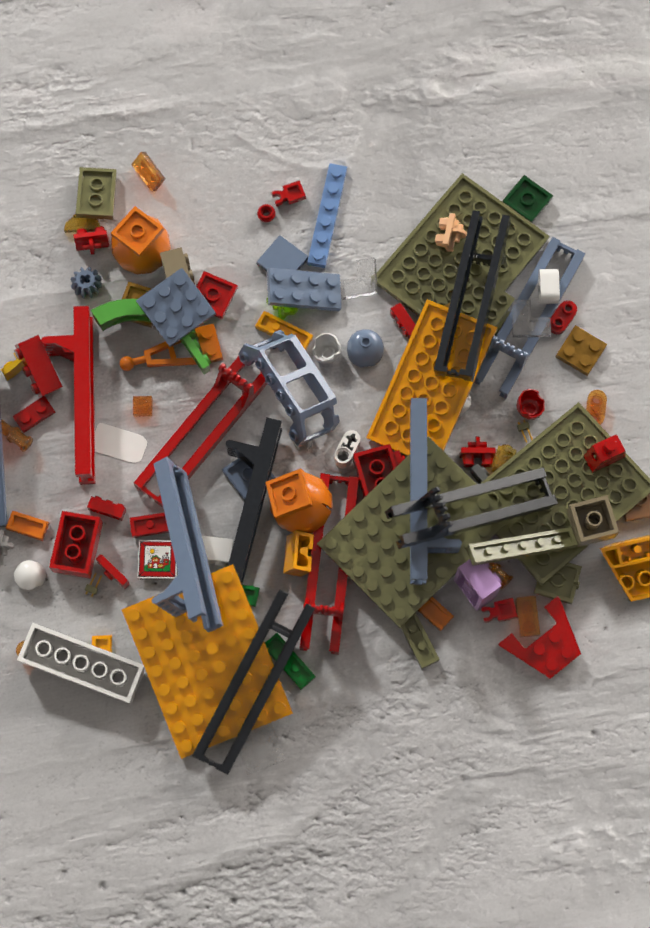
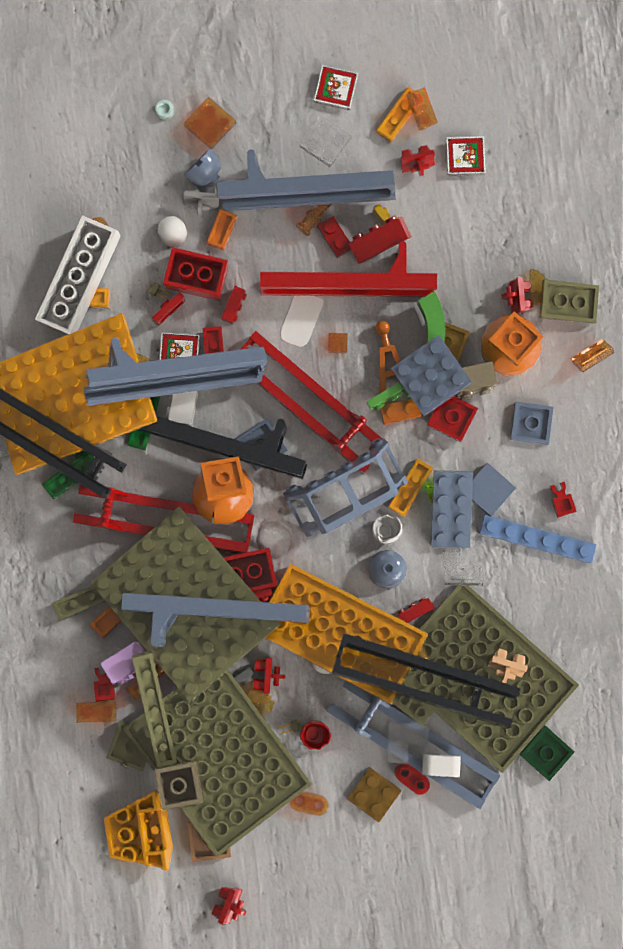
camera: 90 degrees right, 10 degrees up
(91, 285) = (467, 283): sand blue gear -> none
(215, 224) = (531, 423): none -> sand blue tile
(266, 208) = (547, 473): red plate -> none
(296, 553) = (172, 486): light orange brick -> none
(342, 449) = (285, 541): white beam -> none
(447, 528) = (163, 626): piece -> none
(551, 650) = (60, 731): red wing -> none
(606, 451) = (250, 805): red torso -> none

